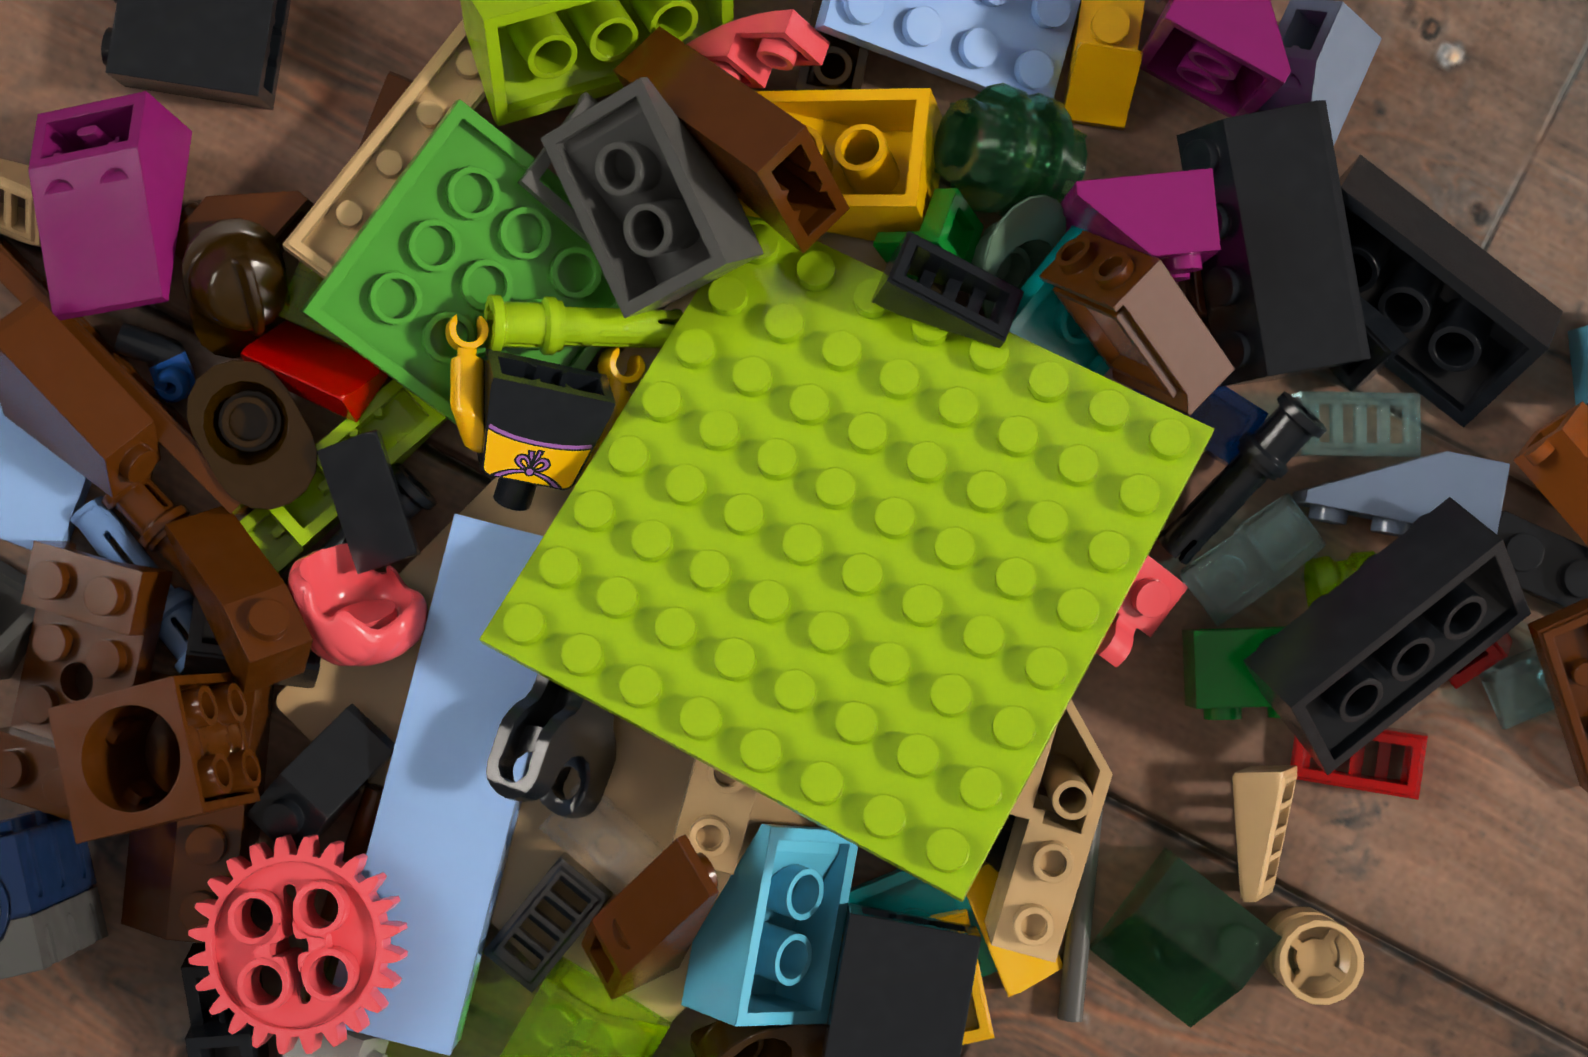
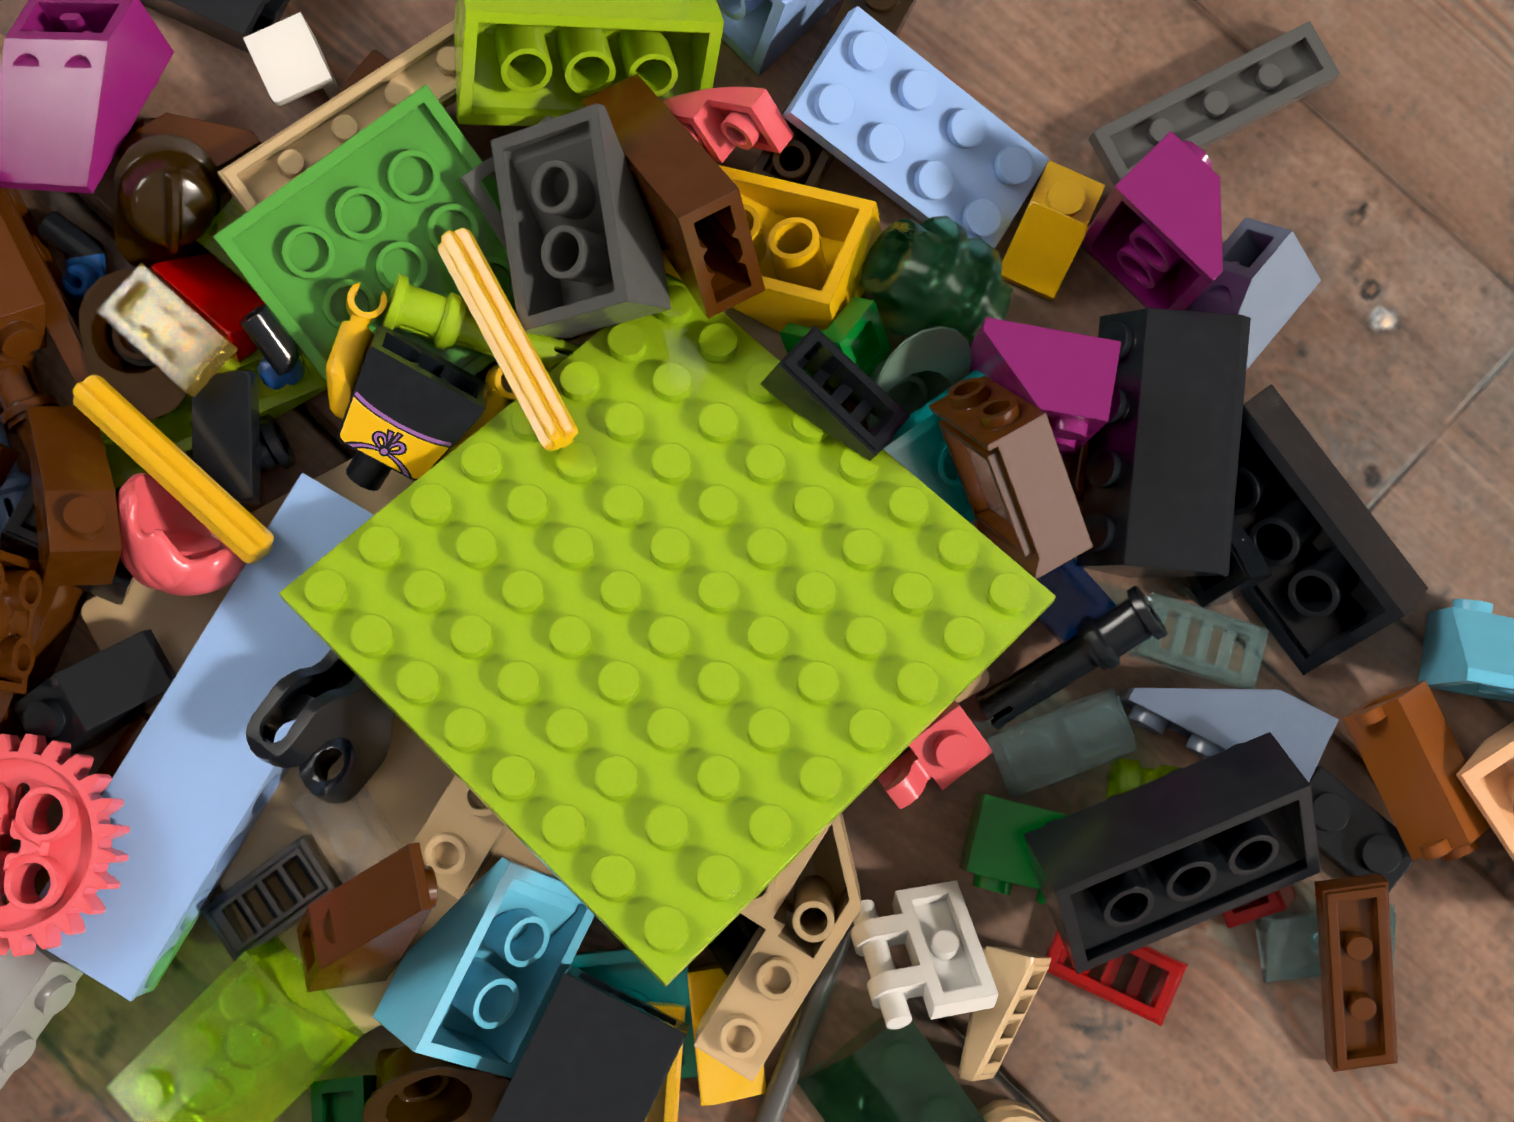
camera: 15 degrees right, 5 degrees down
(281, 412) = (167, 330): none -> clear yellow plate
(311, 109) = (290, 60): none -> white panel
(330, 546) = (173, 469): none -> yellow axle
(397, 406) = (281, 357): none -> black arm
(615, 328) = (507, 340): none -> yellow axle
(1194, 788) = (942, 949): none -> white plate

